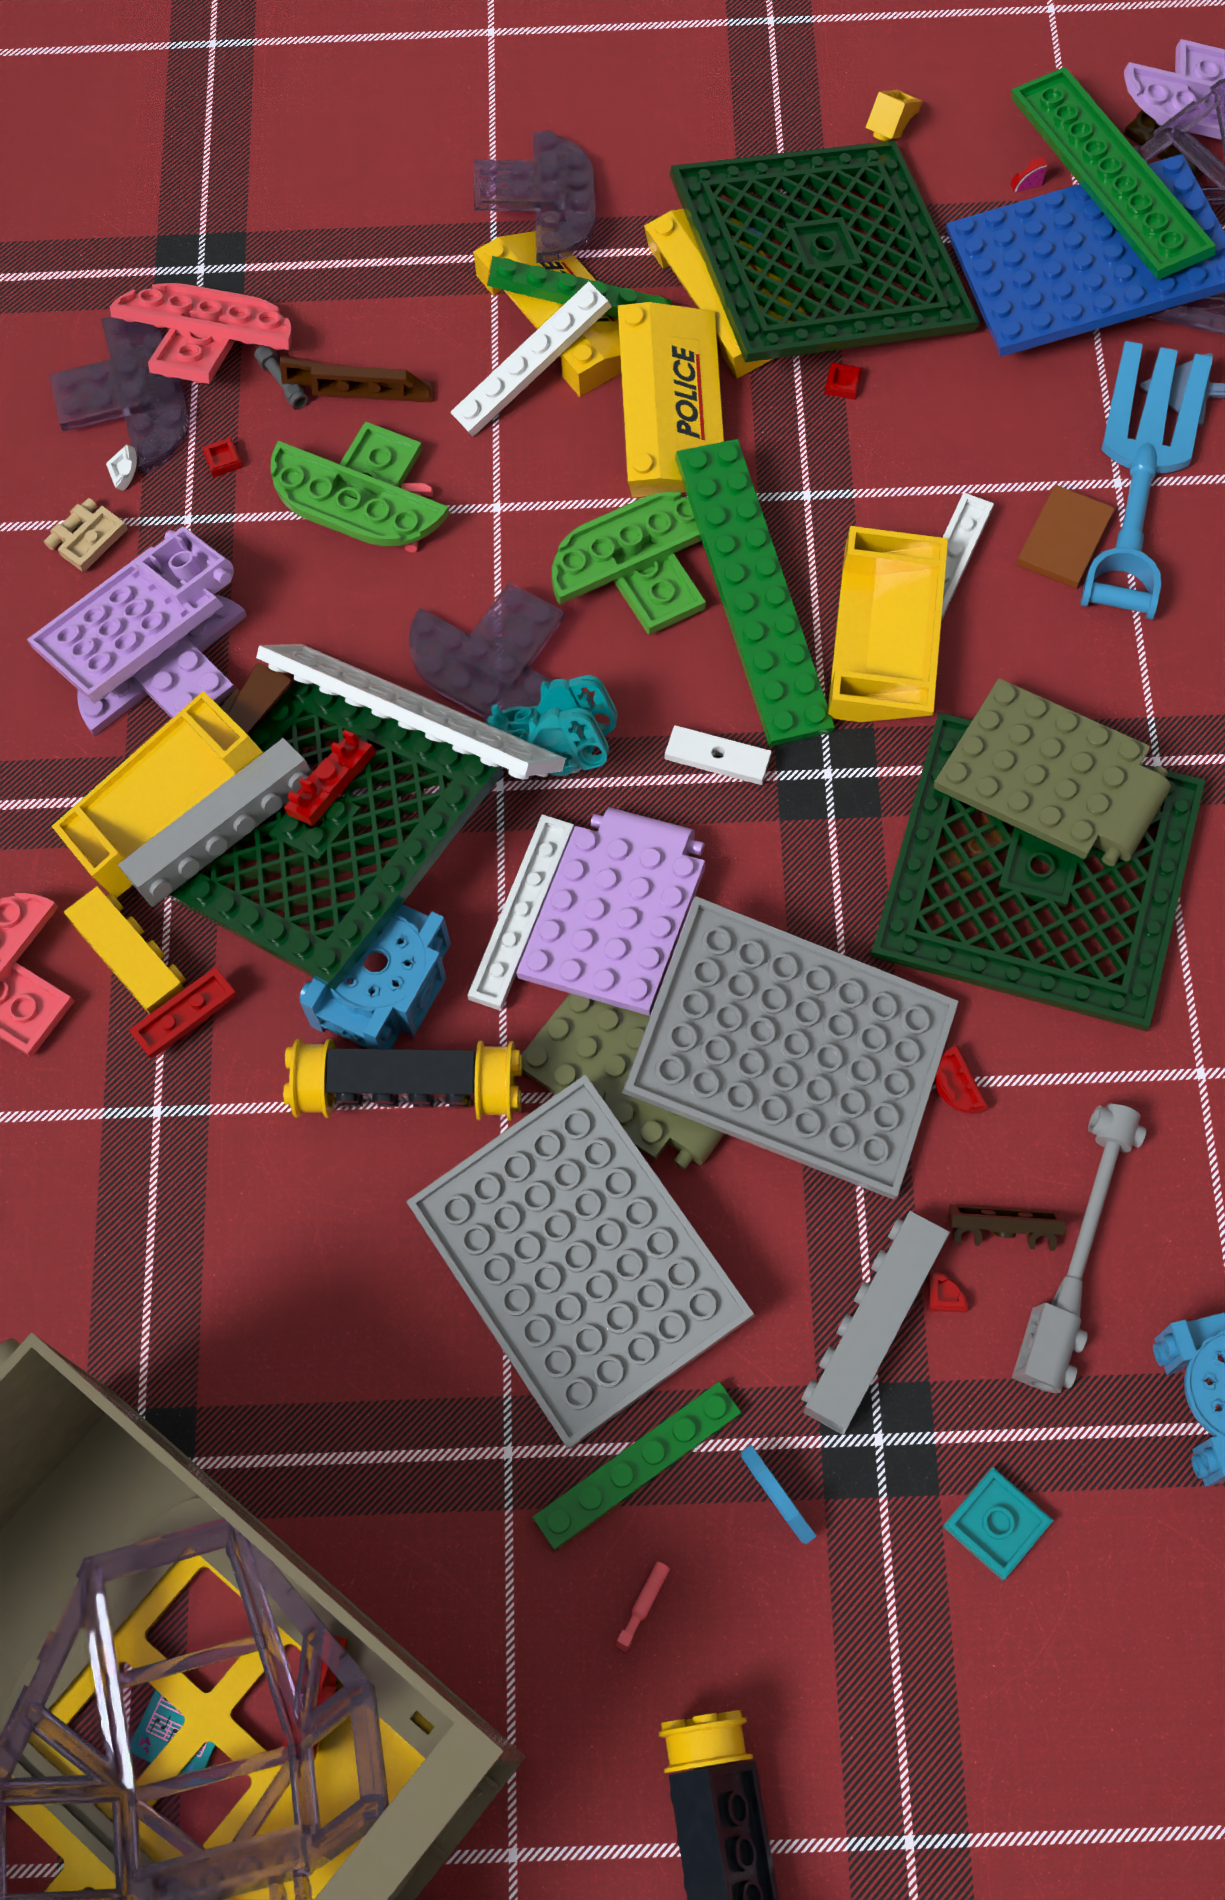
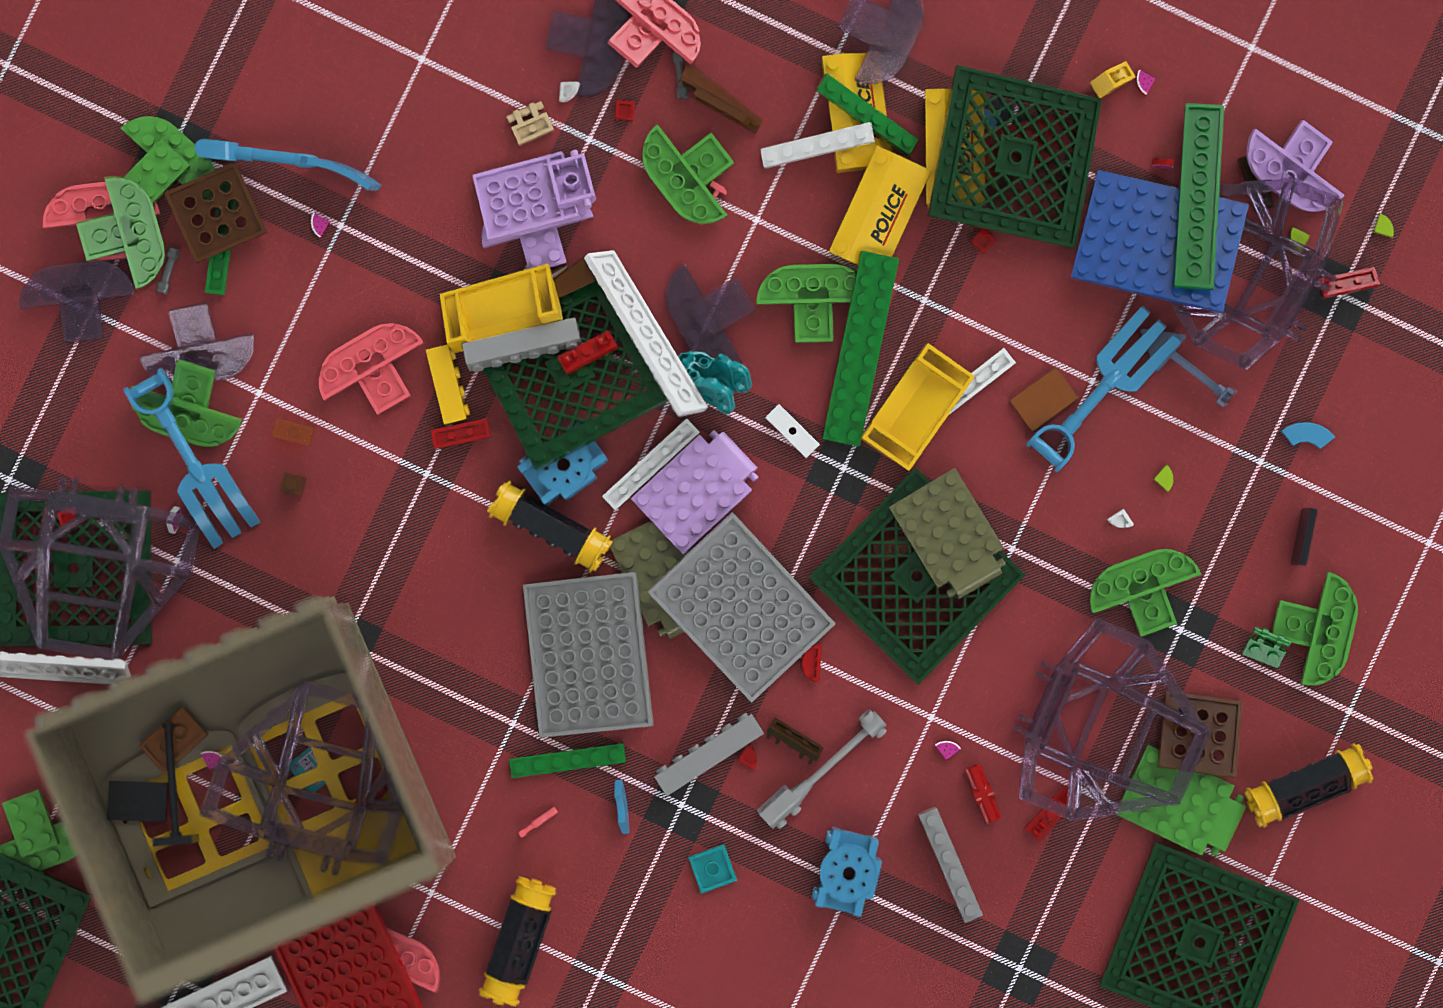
camera: 20 degrees right, 20 degrees up
(937, 101) = (1144, 82): none -> dark pink tile

